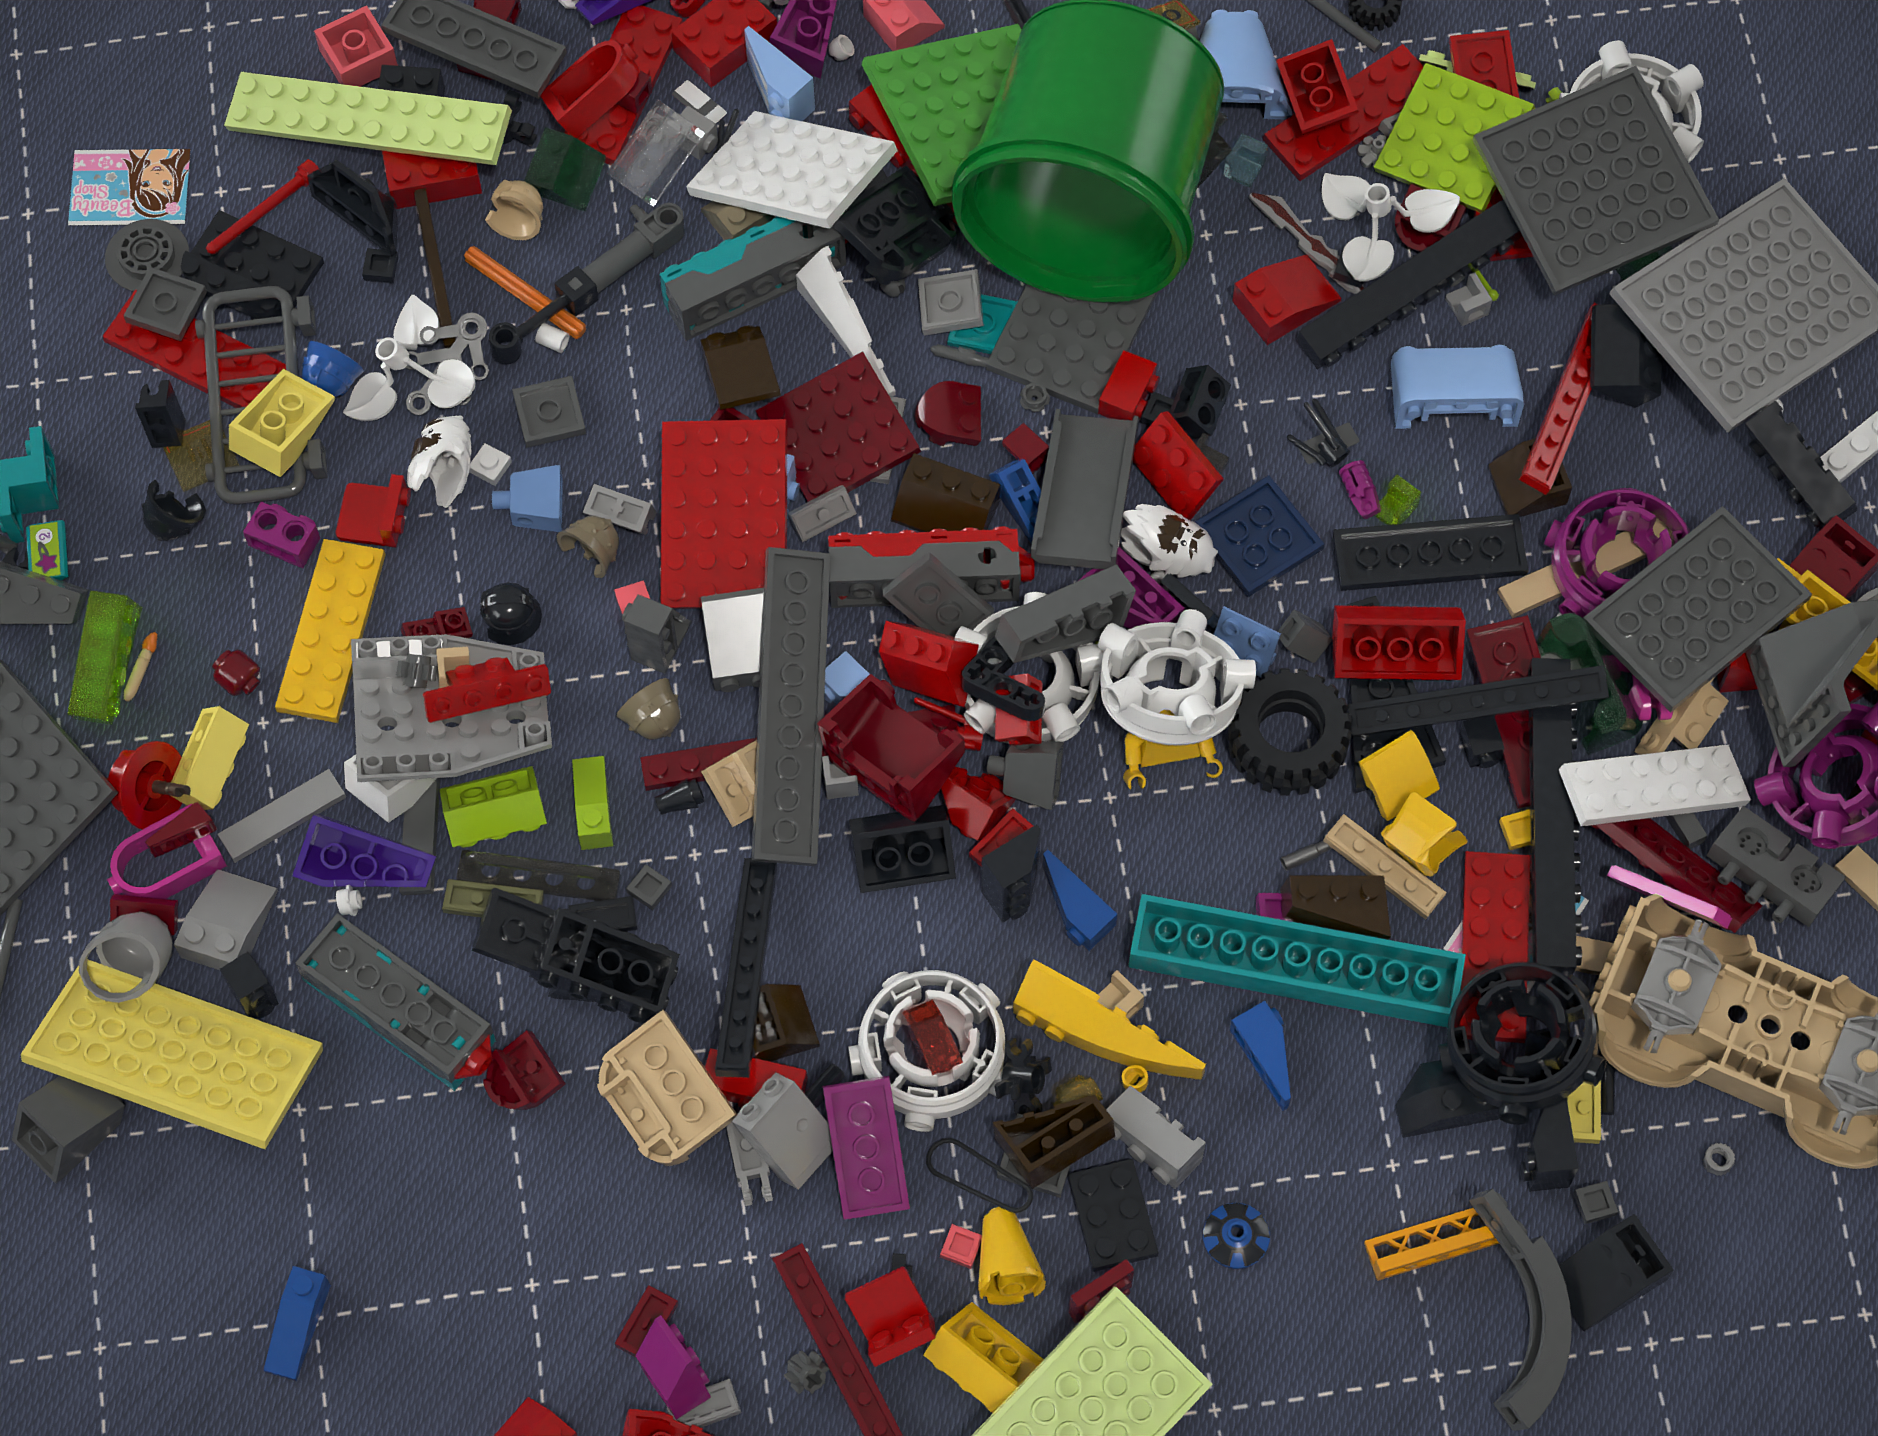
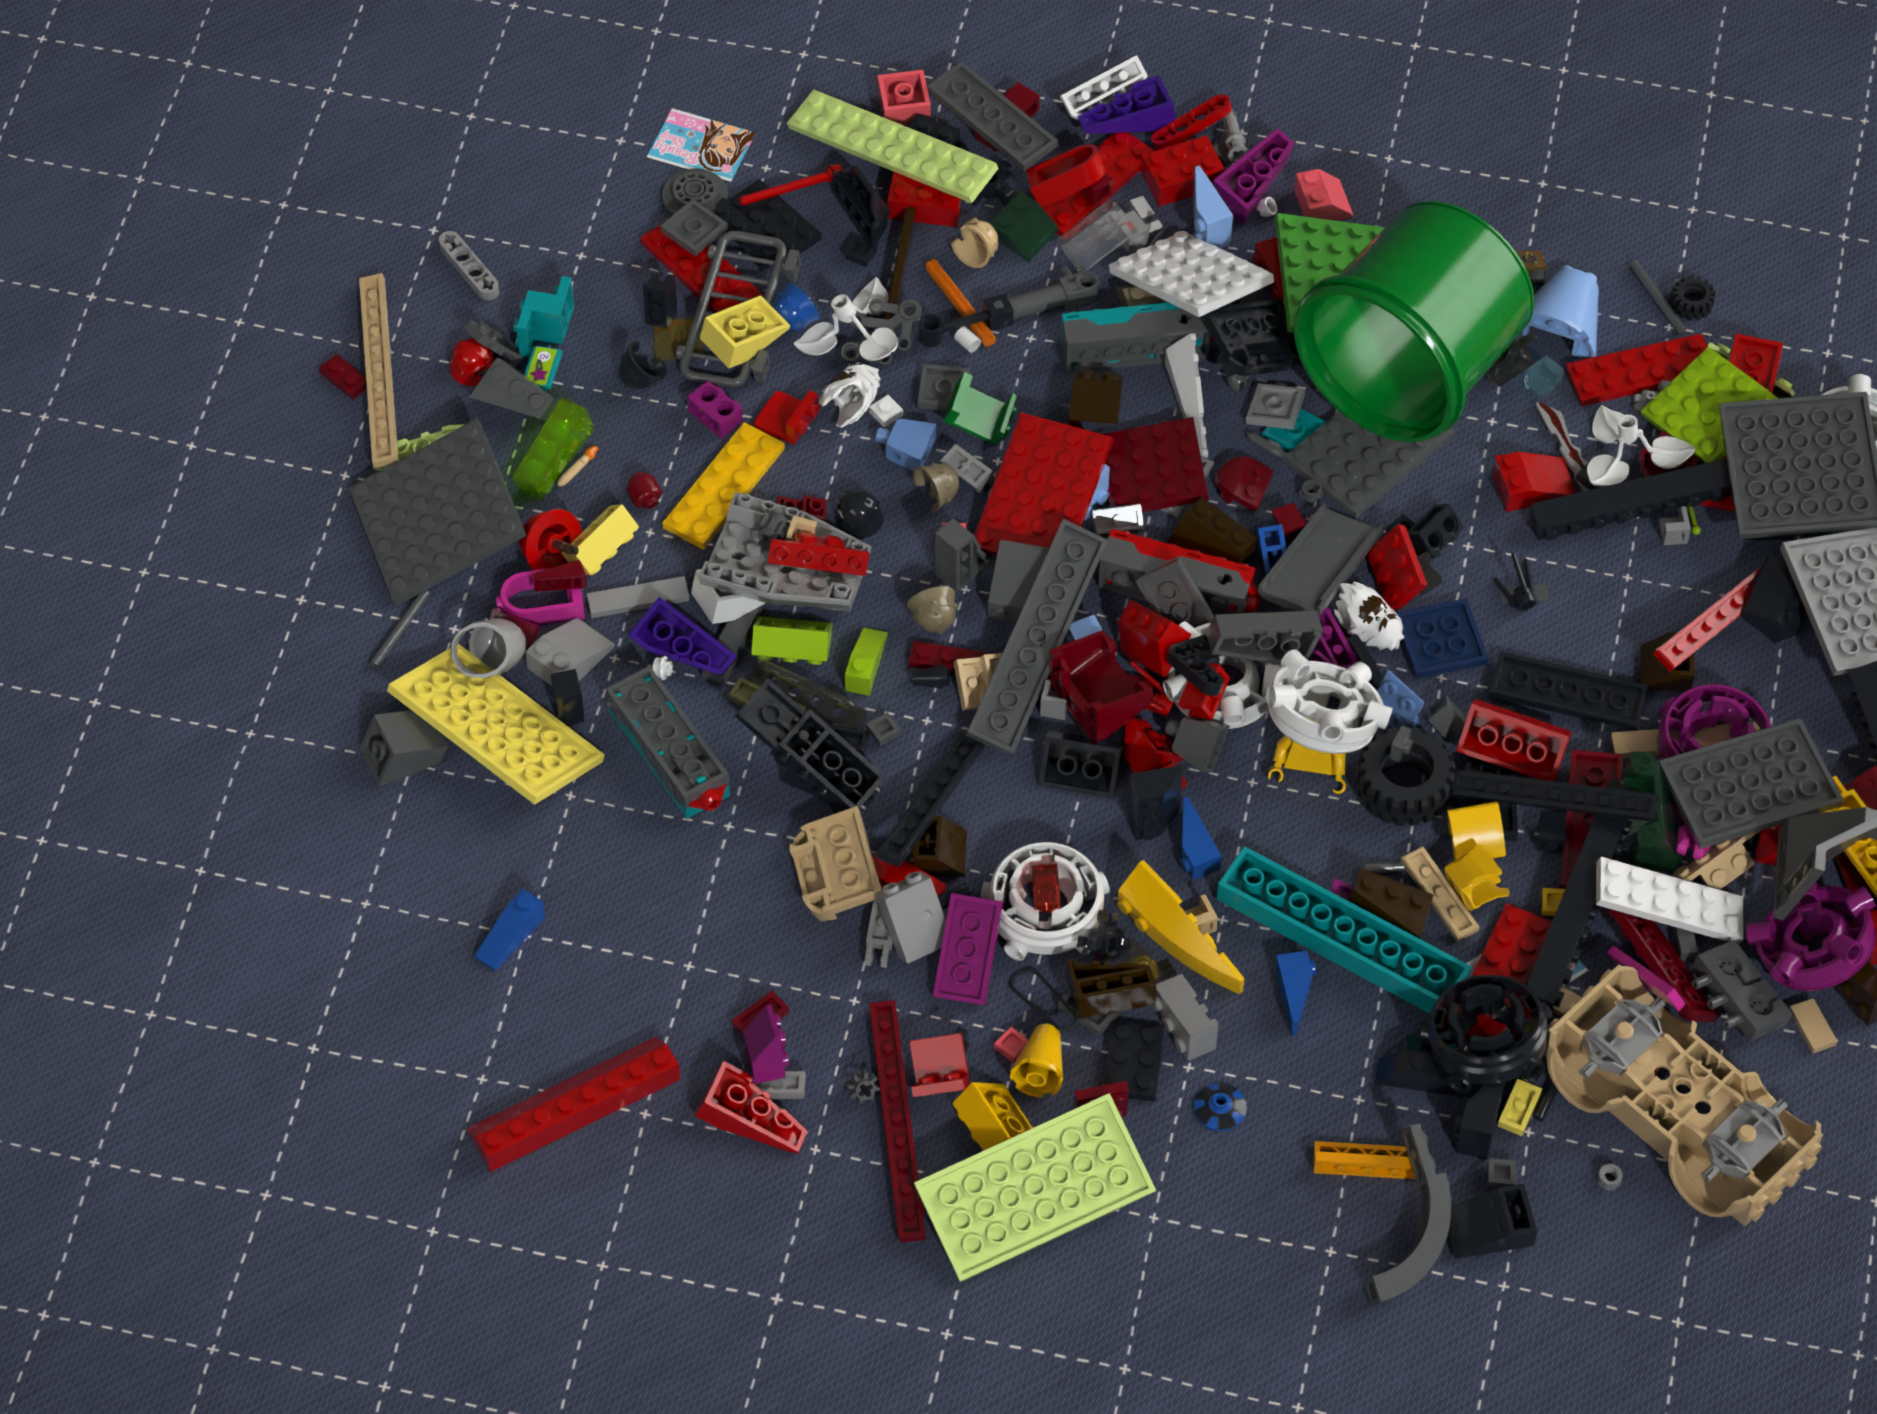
camera: 20 degrees right, 10 degrees down
(522, 1074) = (739, 823): dark red slope -> none
(604, 430) = (979, 412): none -> panel
(1128, 387) = (1385, 504): red brick -> none
(1131, 1075) = (1190, 973): yellow hinge -> none
(1278, 699) = (1401, 744): none -> dark grey plate
(1317, 86) = (1618, 338): red slope -> none
(1360, 488) = (1534, 630): magenta hinge -> none
(1398, 502) = (1560, 650): clear neon green panel -> none
(1456, 382) = (1638, 578): light blue windscreen -> none

